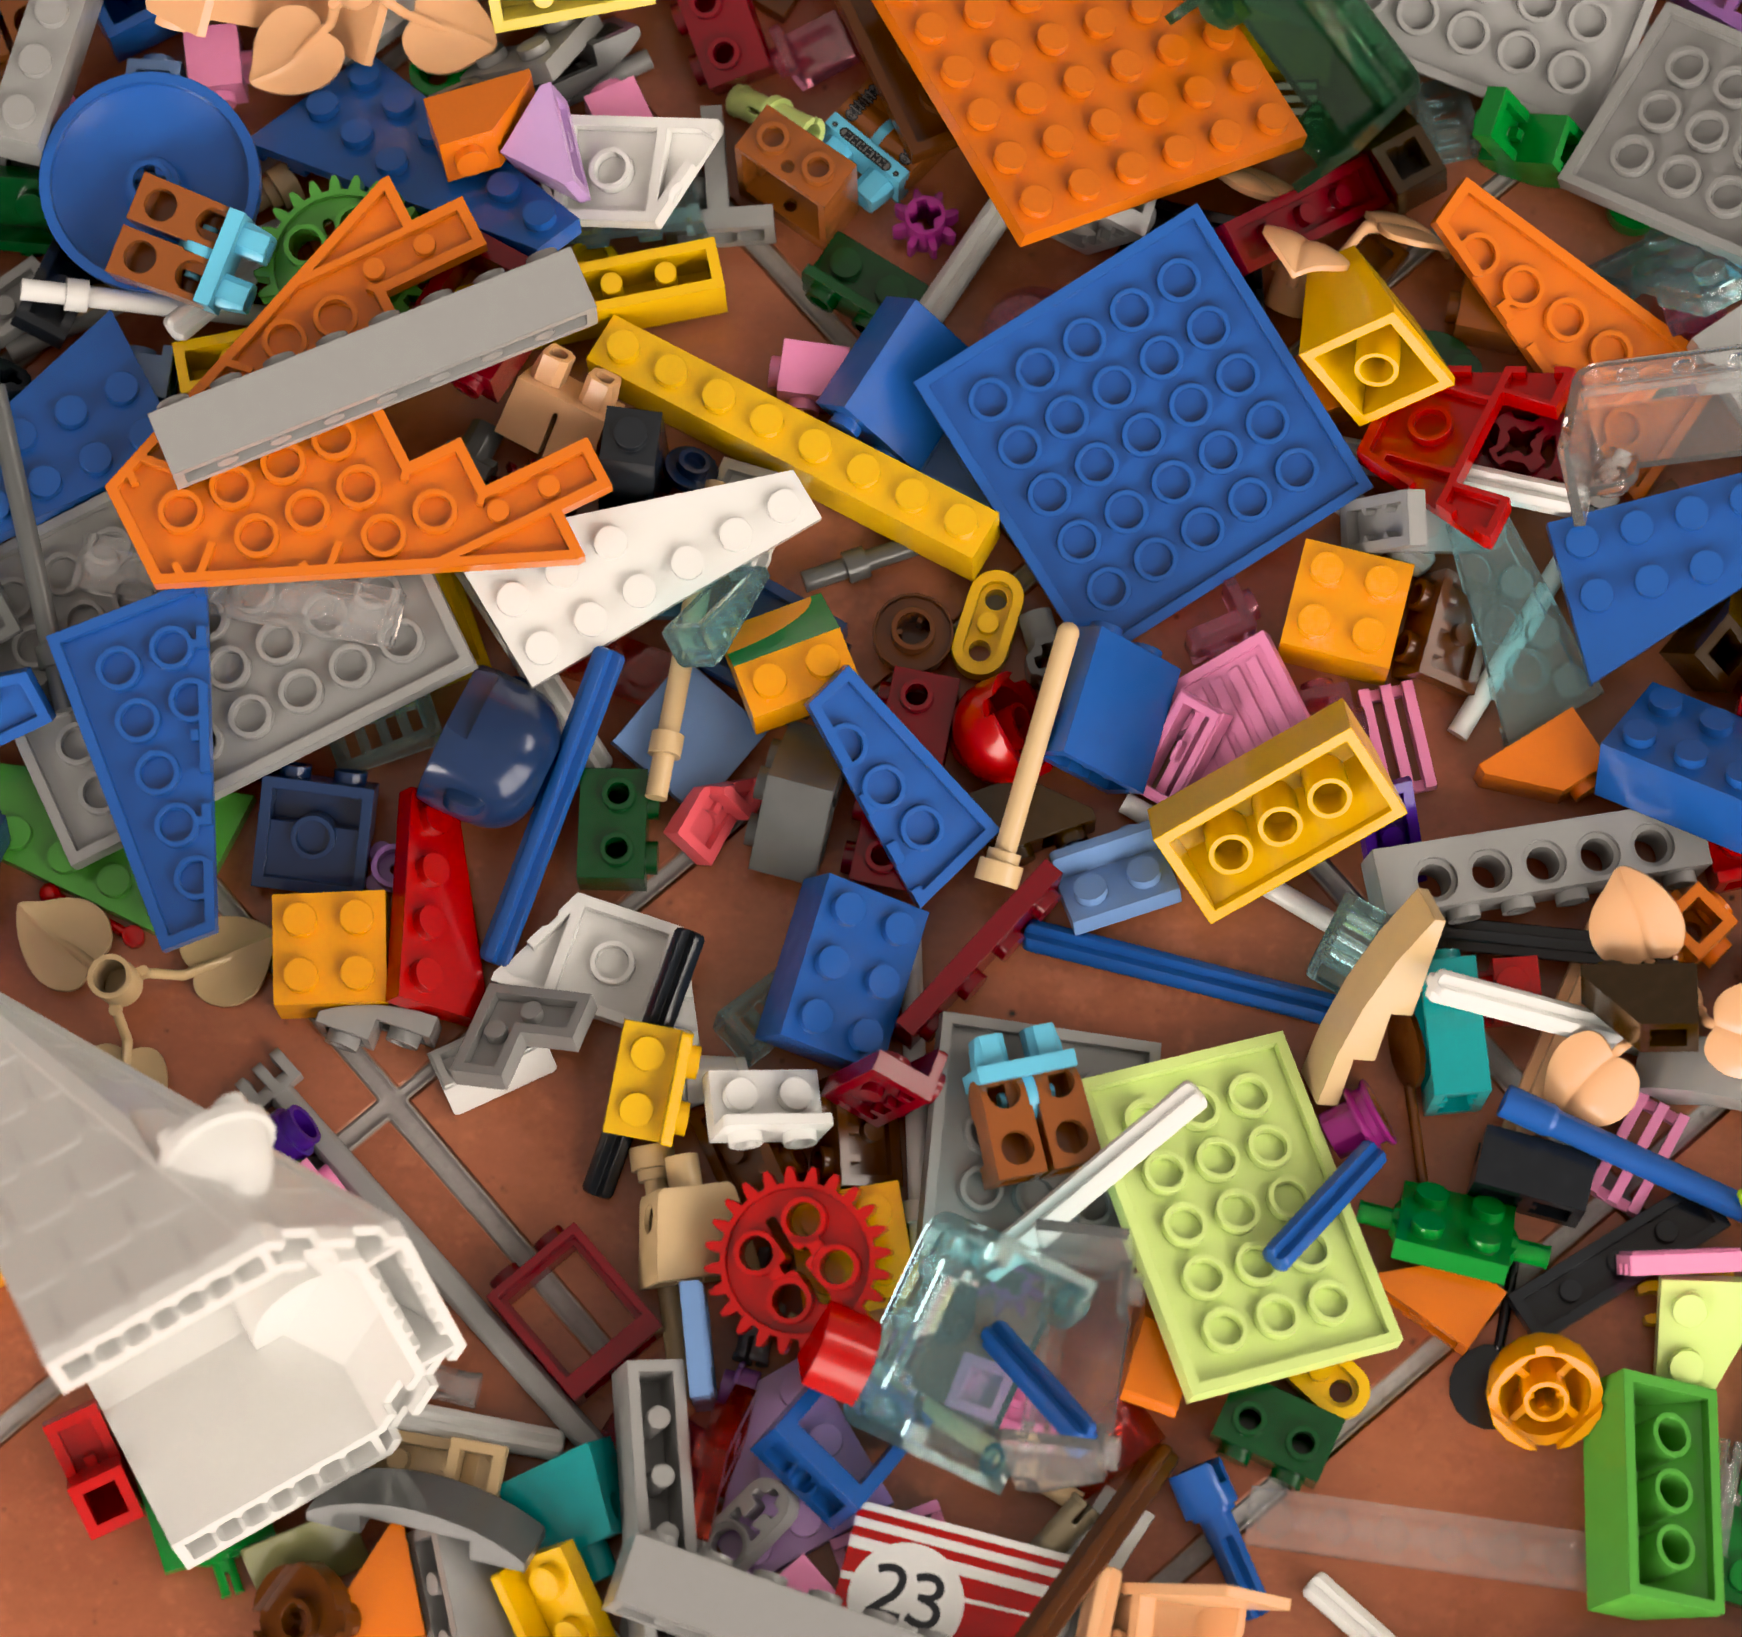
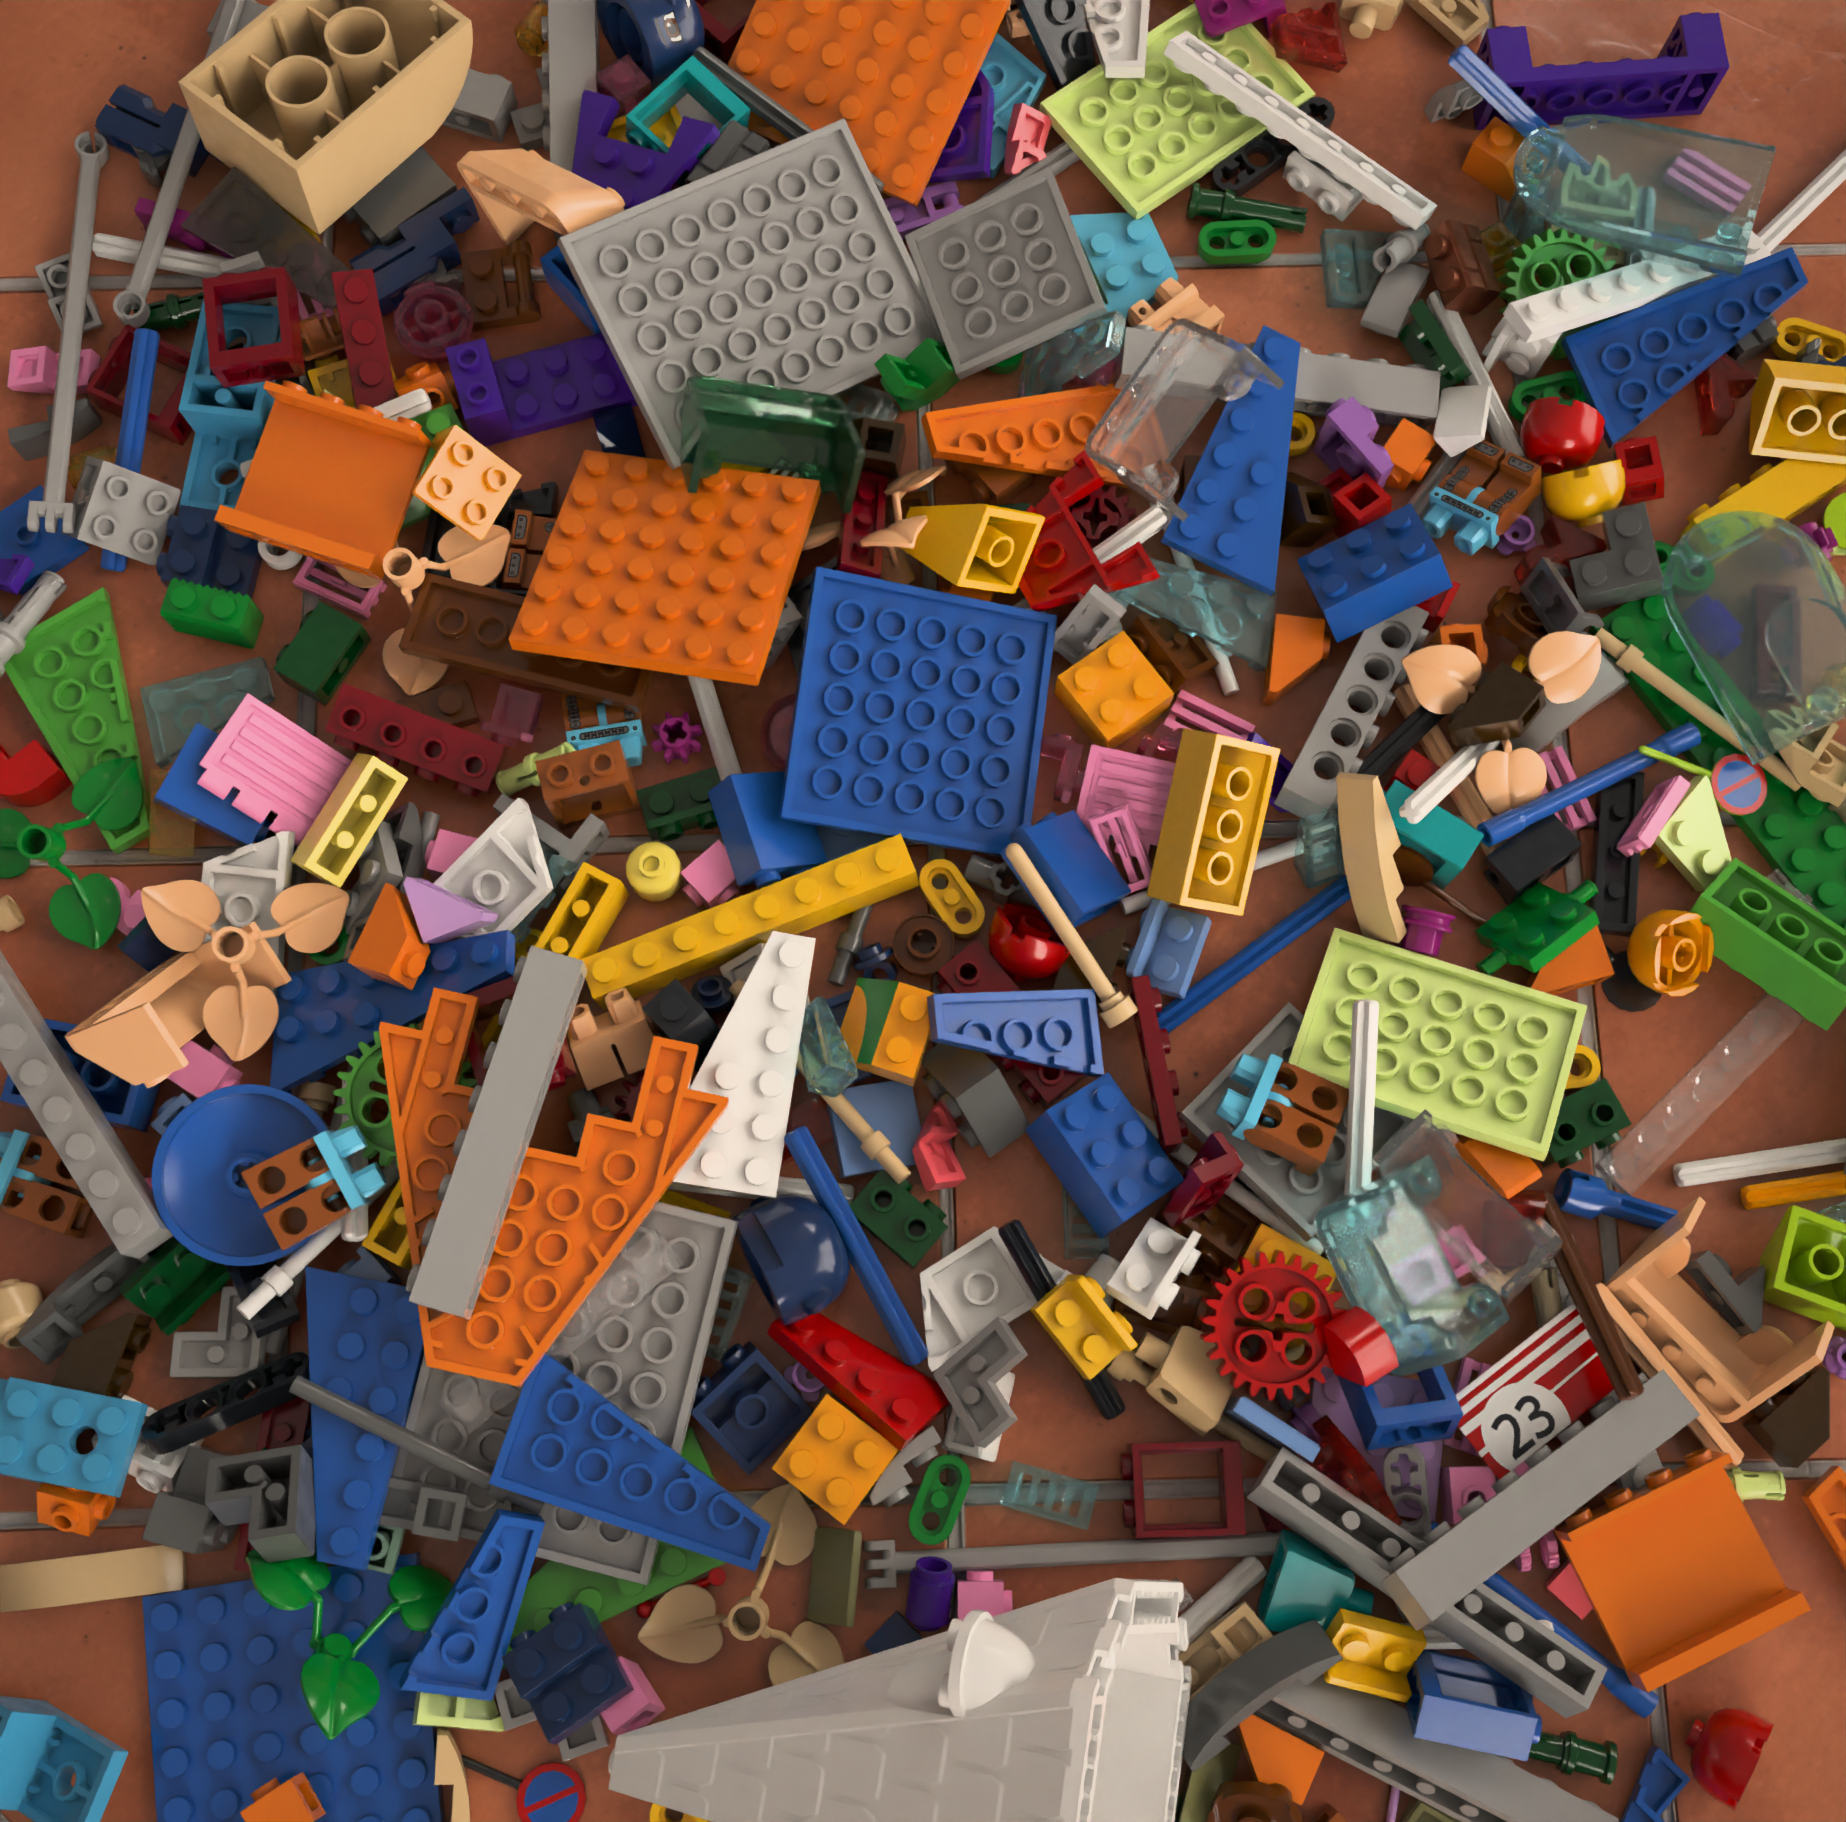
camera: 55 degrees left, 0 degrees up
(221, 1041) = (834, 1576): none -> olive slope
(374, 1082) = (939, 1499): none -> green plate
(446, 1143) = (1013, 1487): none -> clear light blue slope
(766, 313) = (654, 871): none -> light yellow head
(862, 599) = (875, 957): none -> dark blue plate
(1037, 1381) = (1471, 1240): blue axle -> none
(1324, 1205) = (1472, 986): blue axle -> none

